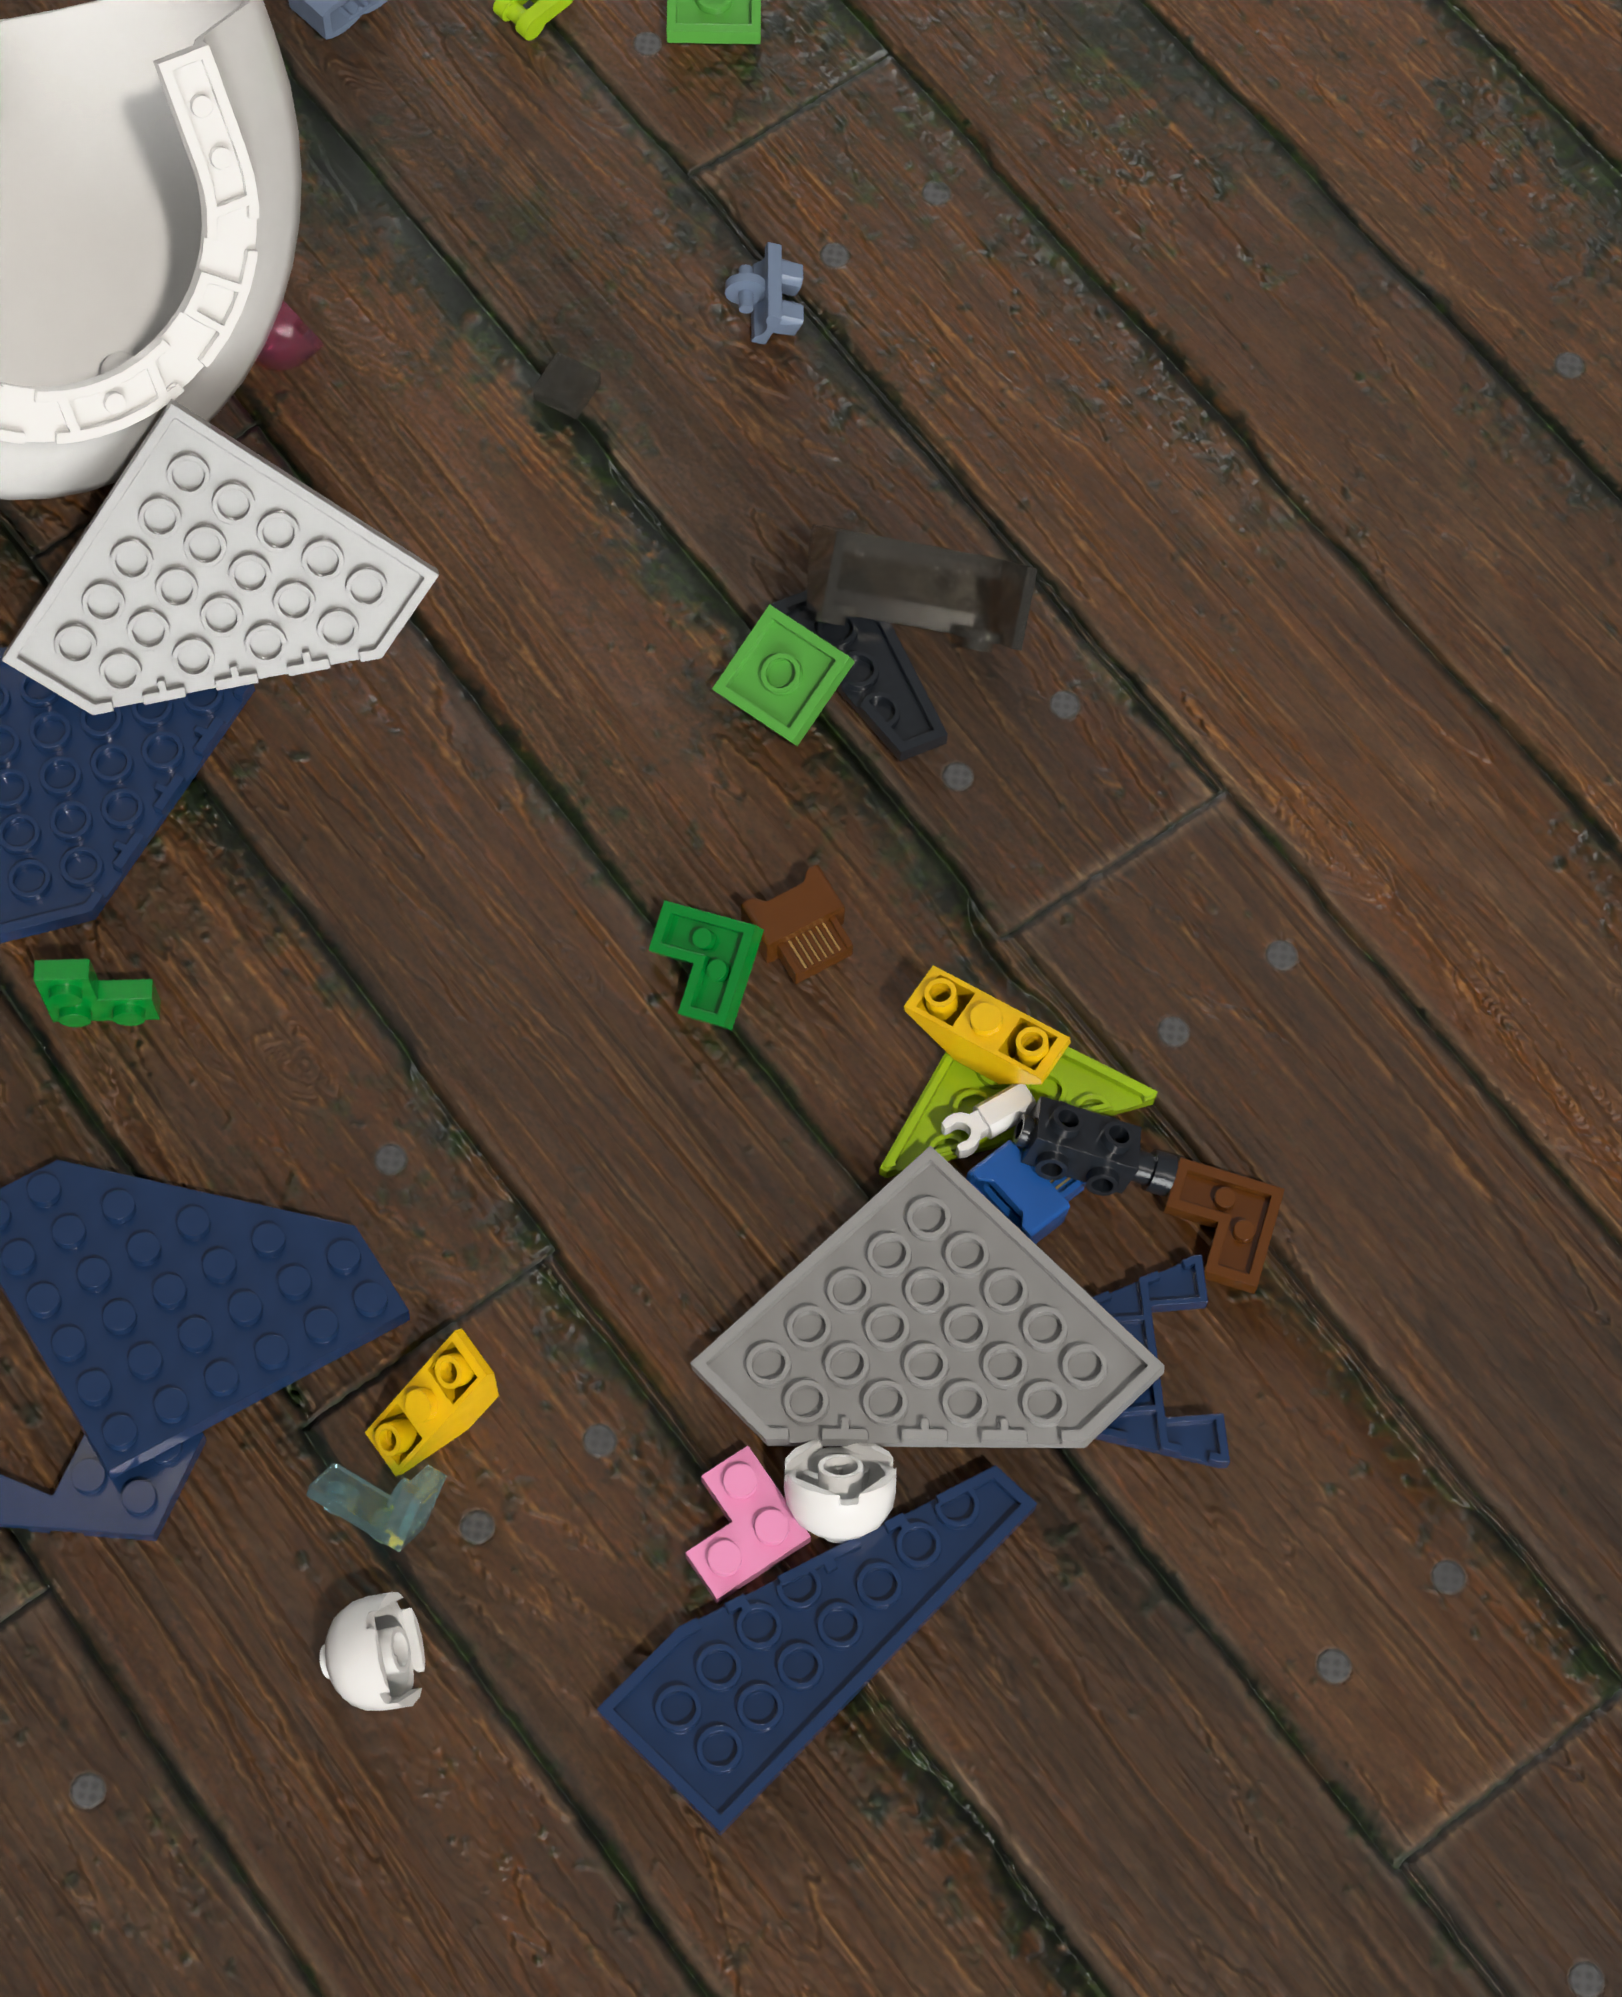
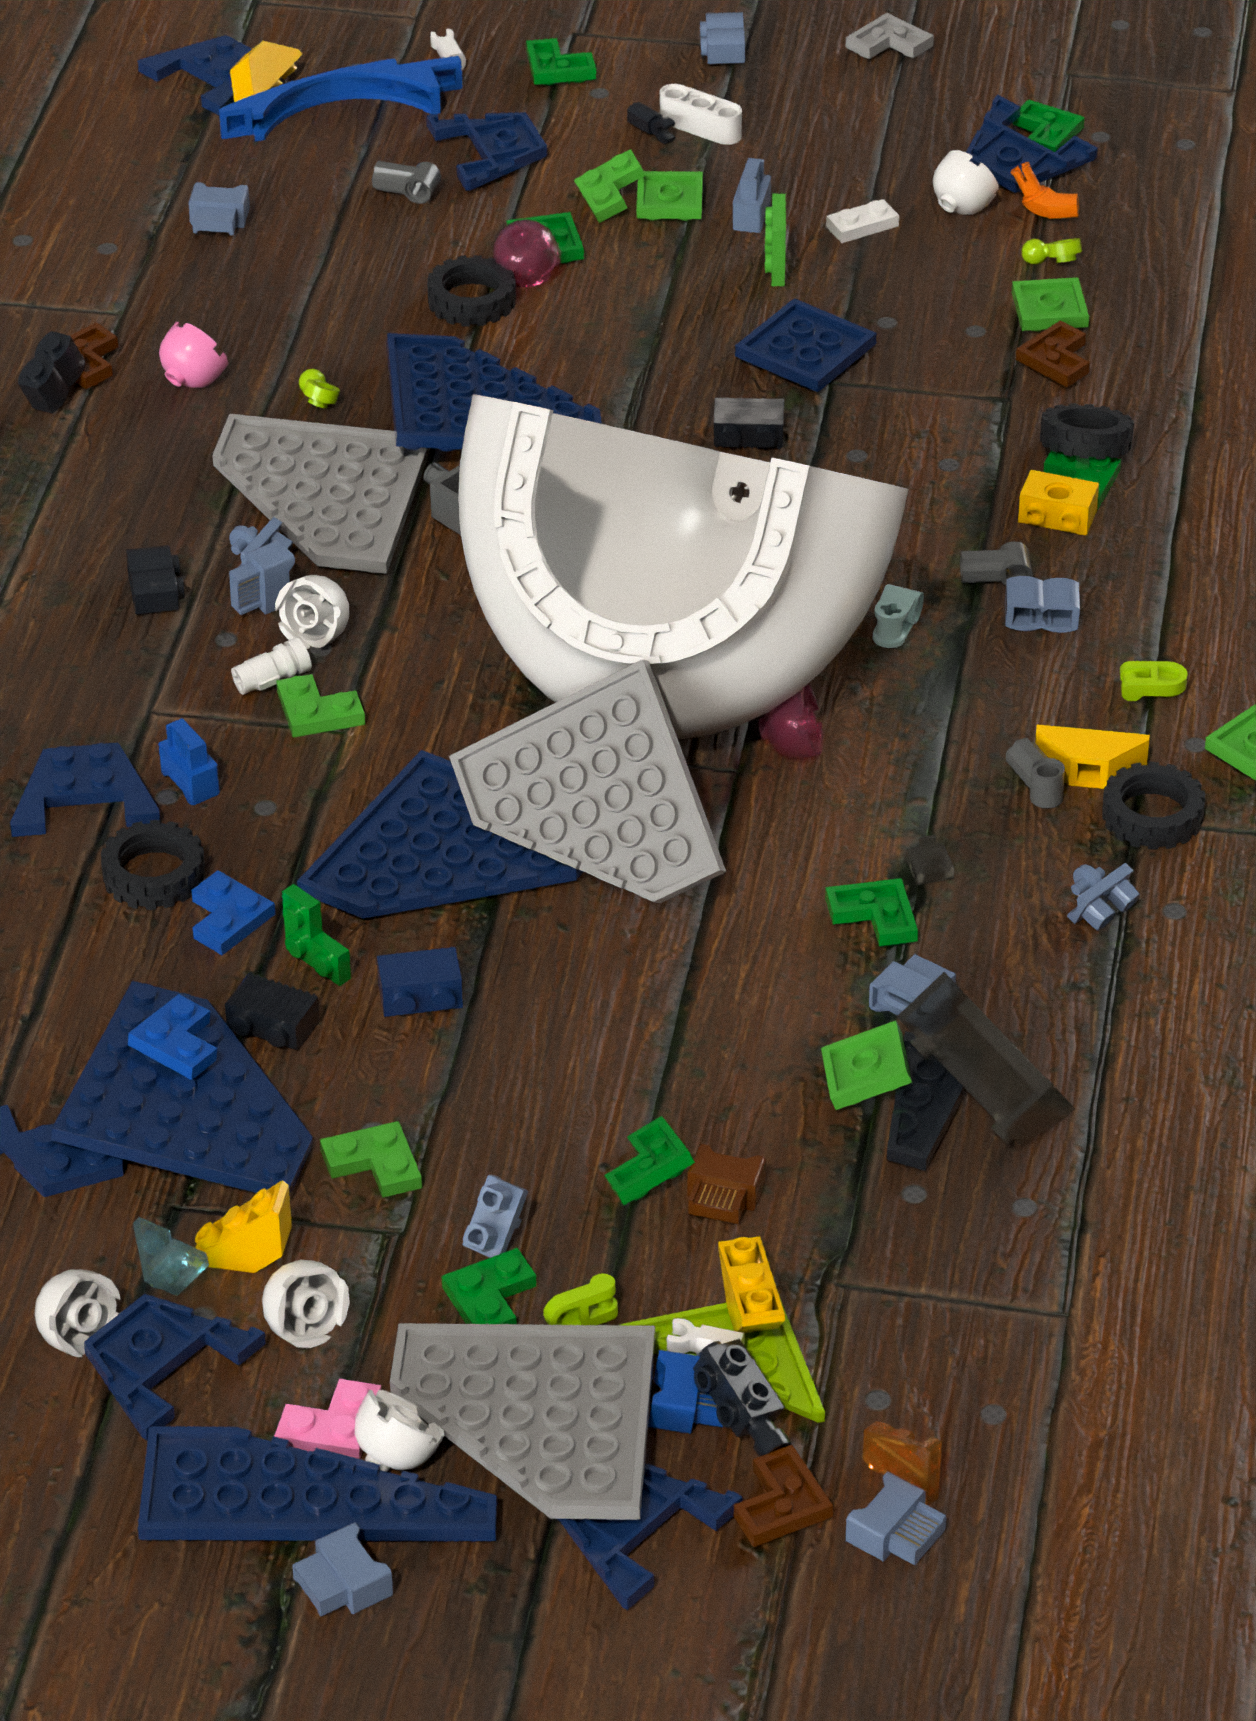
camera: 50 degrees right, 25 degrees down
(99, 1257) = (171, 1037): none -> blue plate
(144, 1117) = (272, 1011): none -> black brick
(251, 949) = (419, 981): none -> dark blue brick
(432, 1177) = (376, 1149): none -> bright green plate
(478, 1620) = (150, 1343): none -> dark blue wing
(567, 196) = (1038, 772): none -> dark grey piece
(577, 1428) = (305, 1302): none -> white cylinder
(580, 138) = (1091, 754): none -> yellow slope
(581, 471) = (878, 901): none -> green plate
(649, 1163) = (495, 1217): none -> sand blue hips
(698, 108) = (1147, 830): none -> black tyre
(706, 1251) = (481, 1287): none -> green plate
(724, 548) = (903, 984): none -> sand blue piece
(823, 1199) = (584, 1305): none -> lime plate
(954, 1687) = (342, 1574): none -> sand blue piece
(1291, 1085) = (903, 1456): none -> clear orange wing
(1348, 1151) = (896, 1522): none -> sand blue piece

